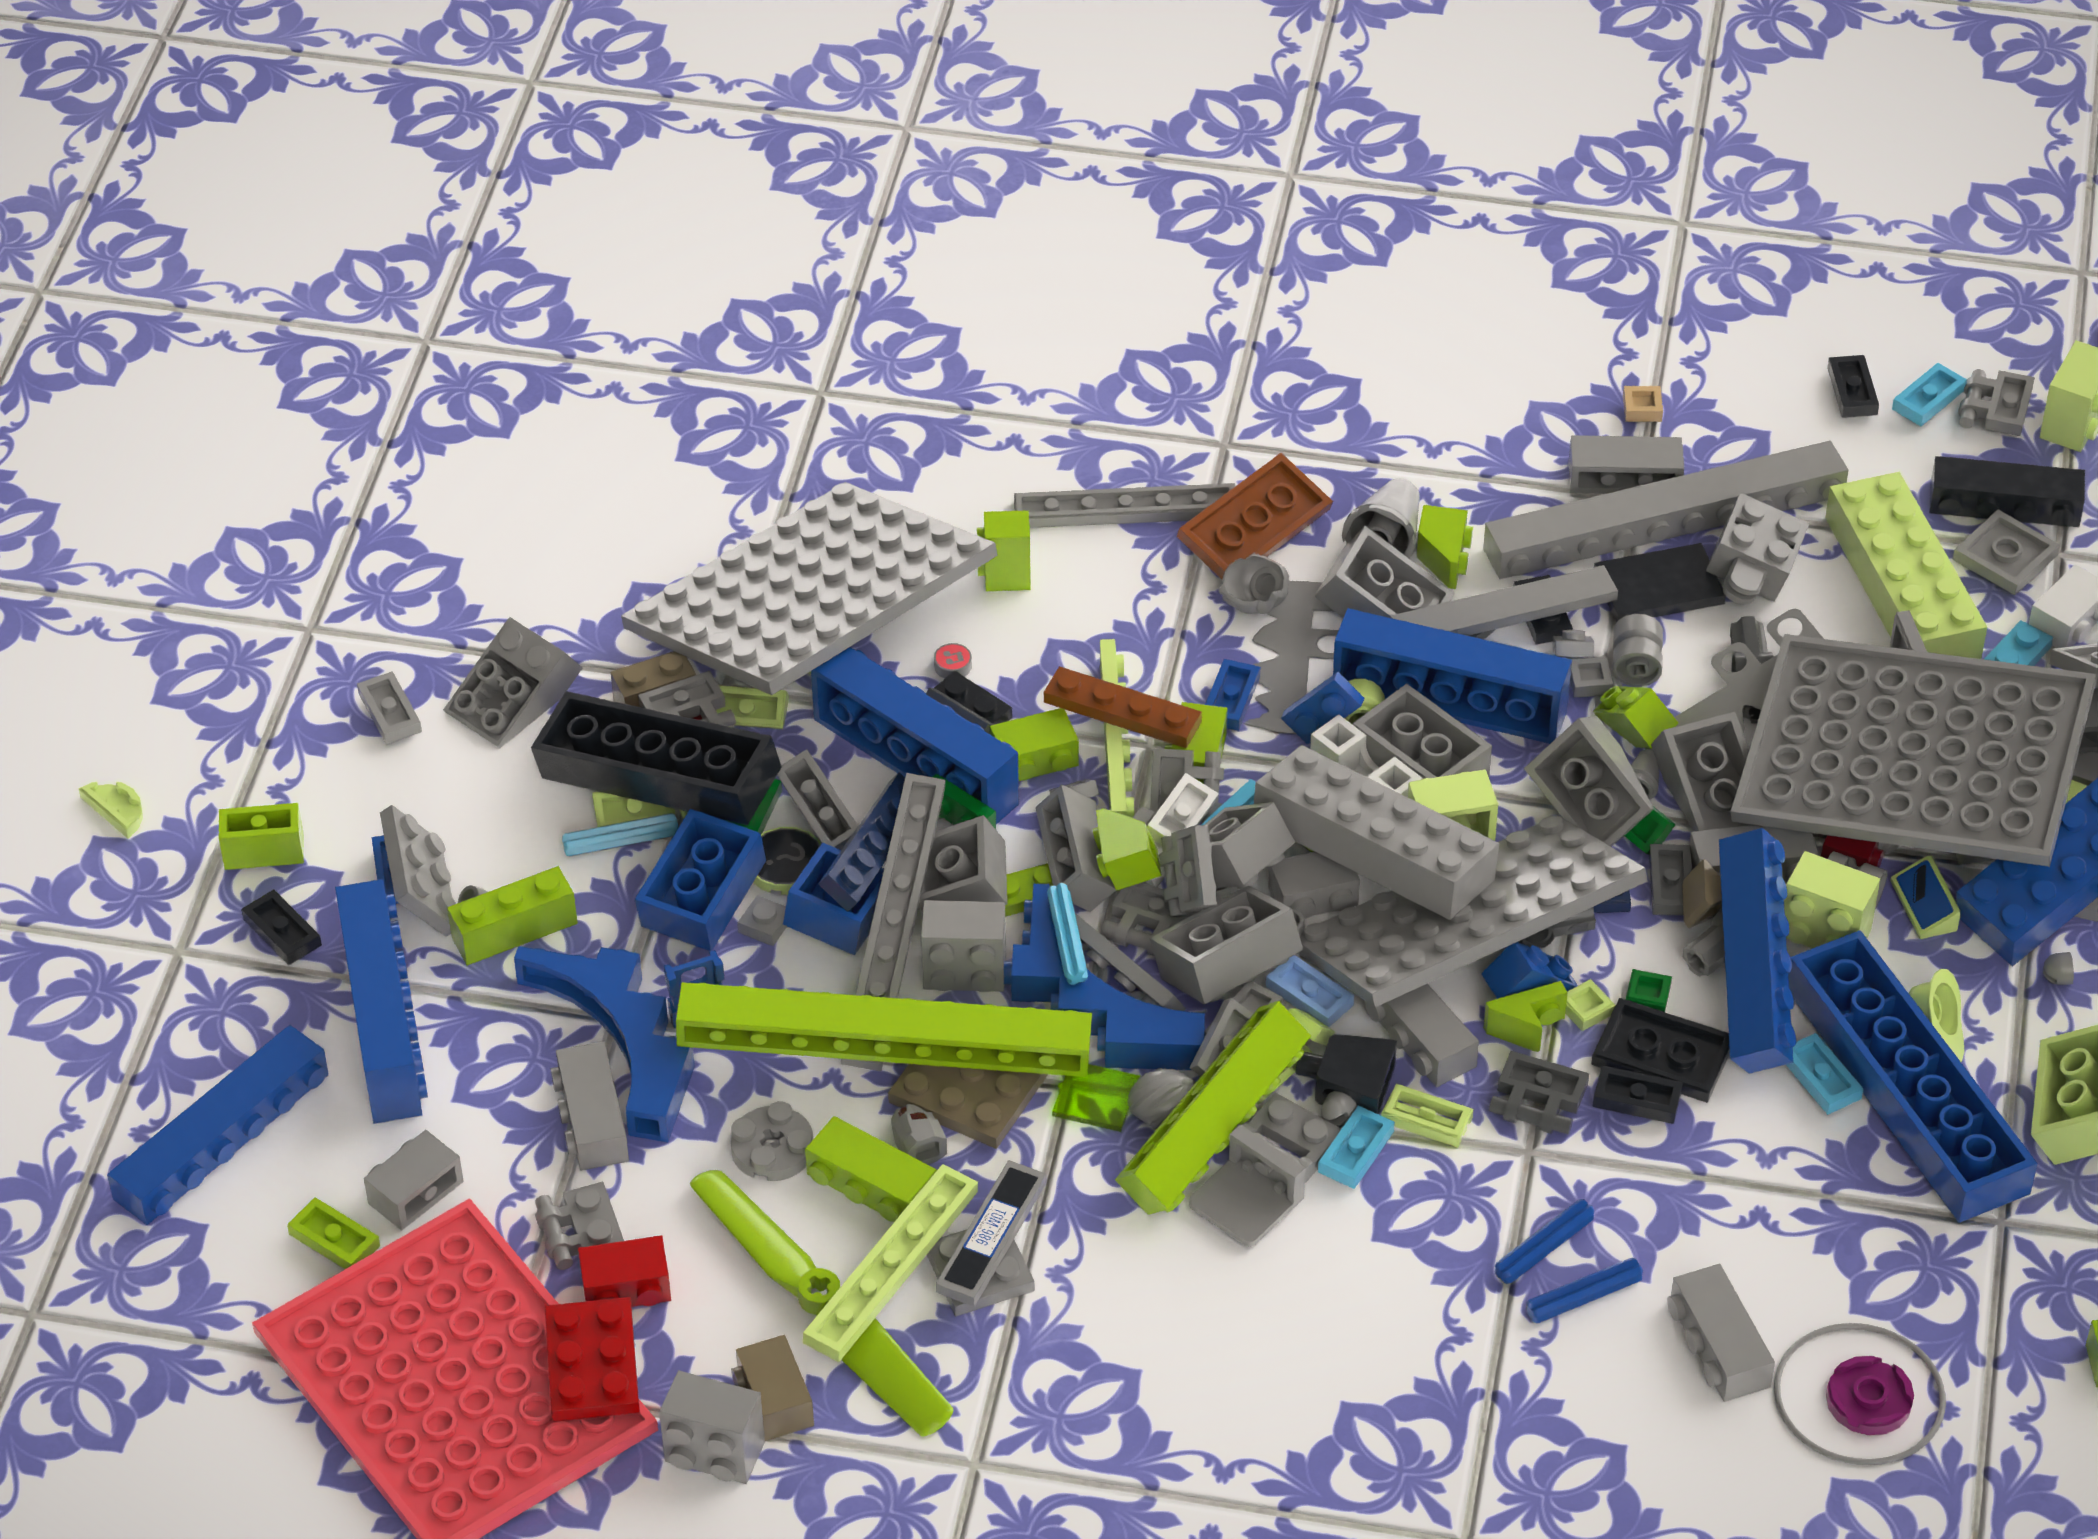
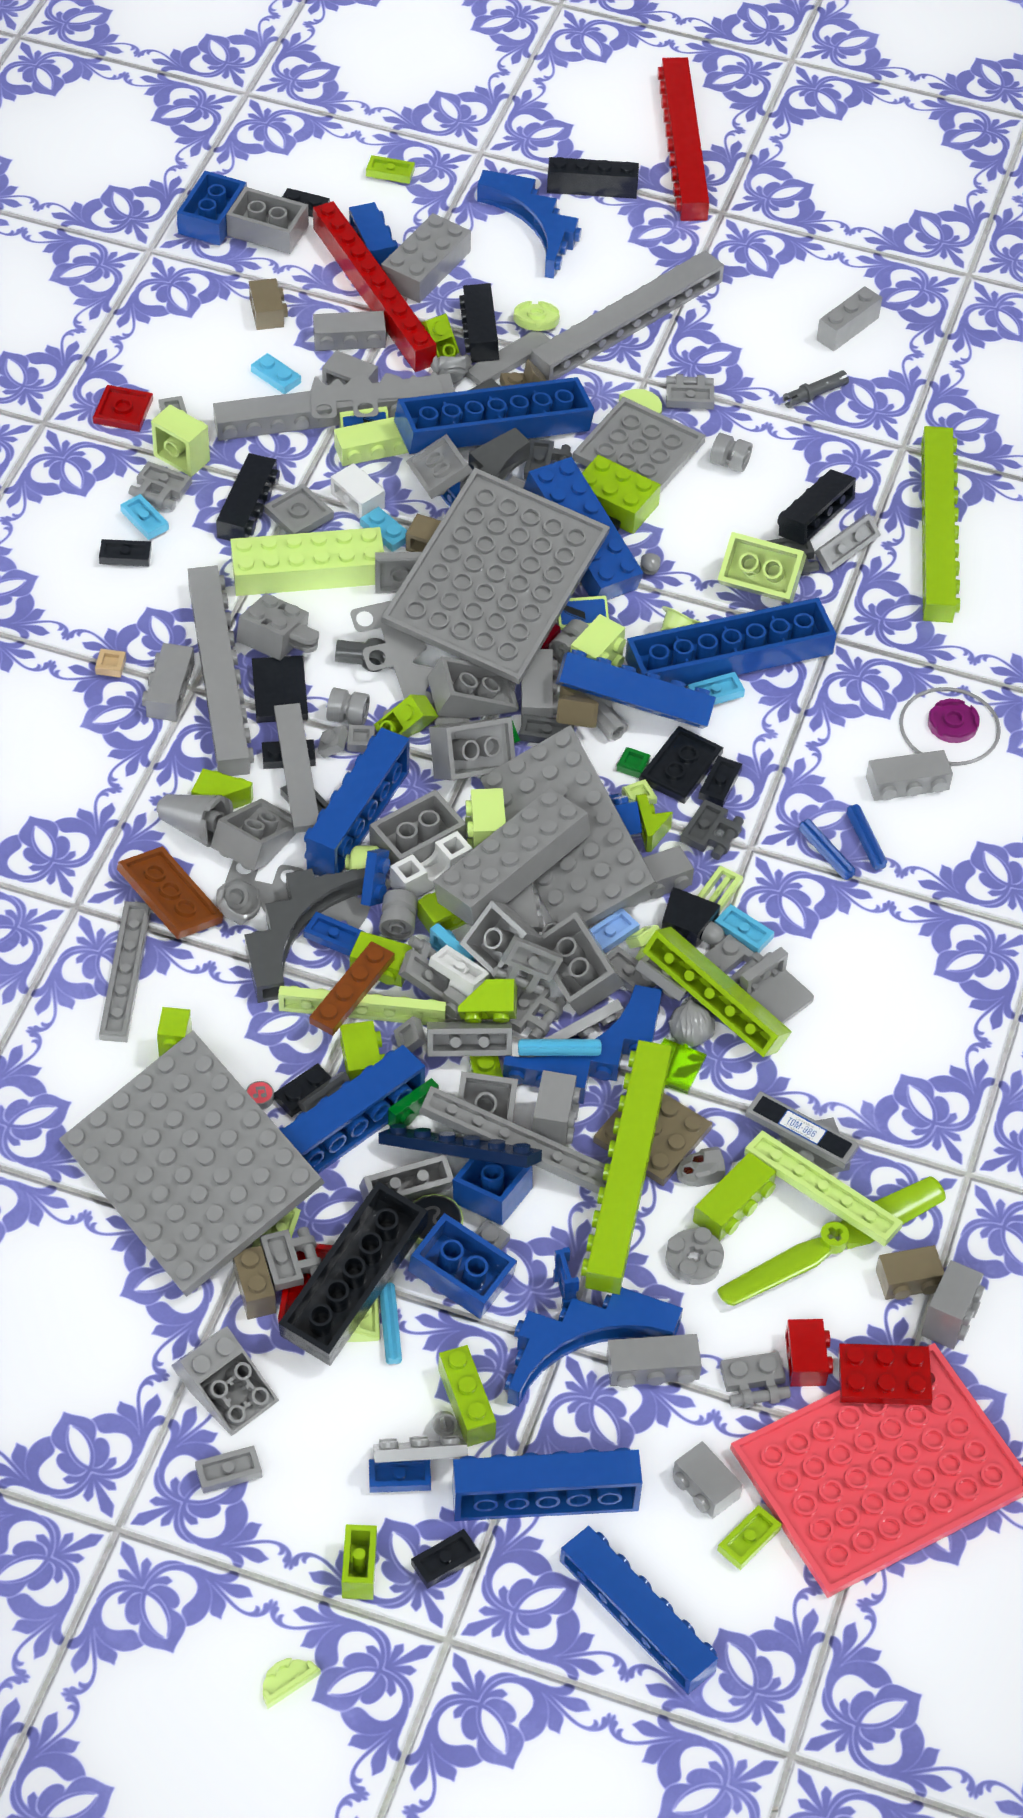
camera: 85 degrees left, 5 degrees up
(1186, 632) = (287, 918): none -> dark grey arch
(1269, 748) = (398, 915): none -> light grey wheel

